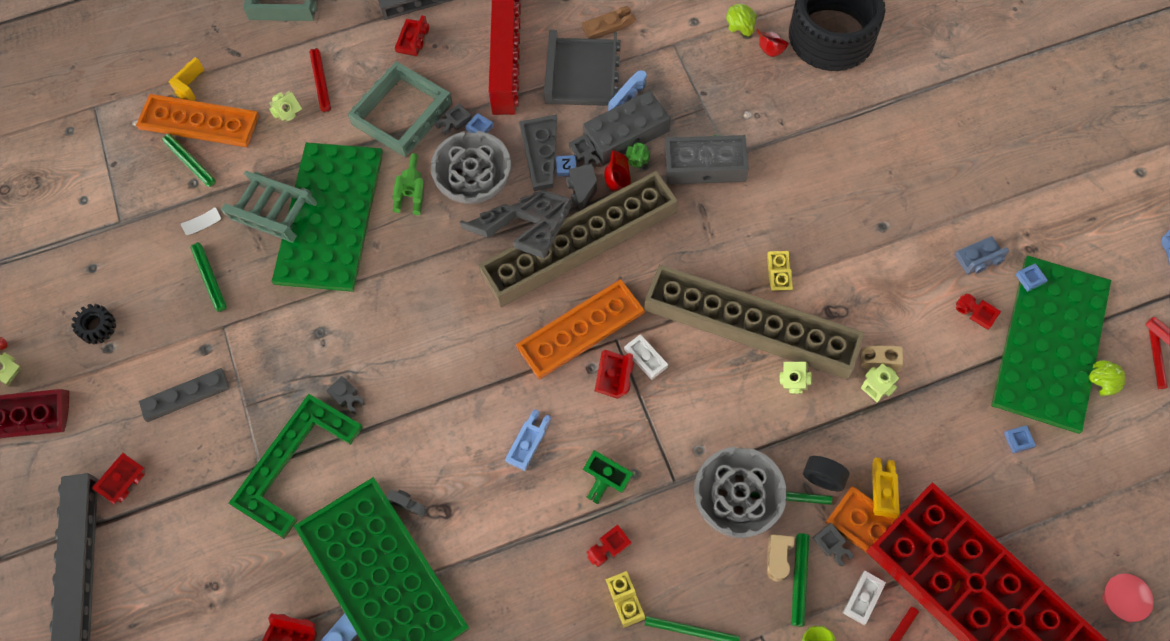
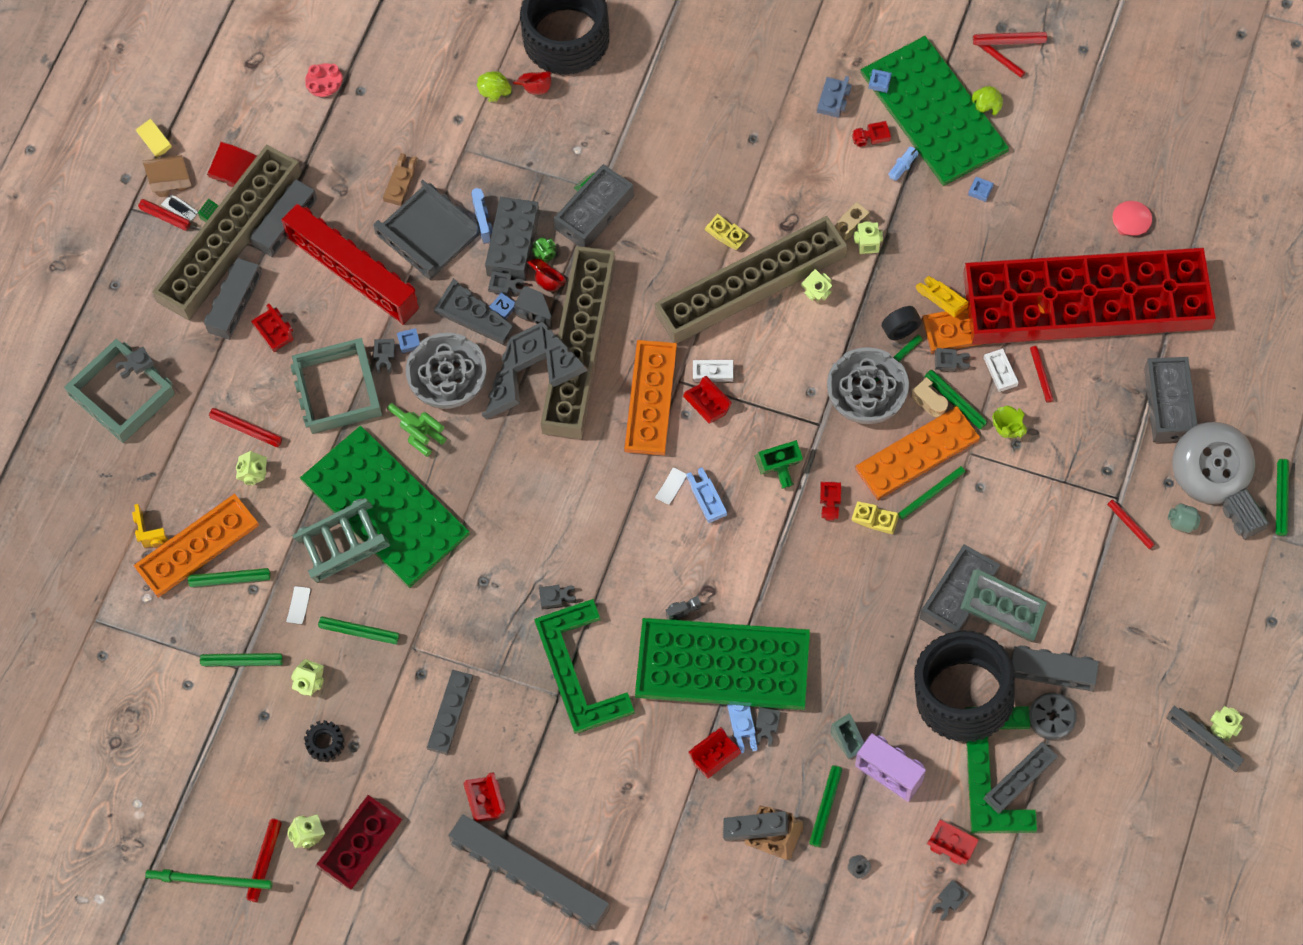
camera: 50 degrees left, 0 degrees up
(126, 218) = (242, 659): none -> green axle
(136, 271) = (308, 677): none -> yellowish green brick
(515, 406) = (671, 486): none -> white sticker
(720, 587) = (917, 453): none -> orange plate
(976, 356) = (903, 163): none -> light blue axle

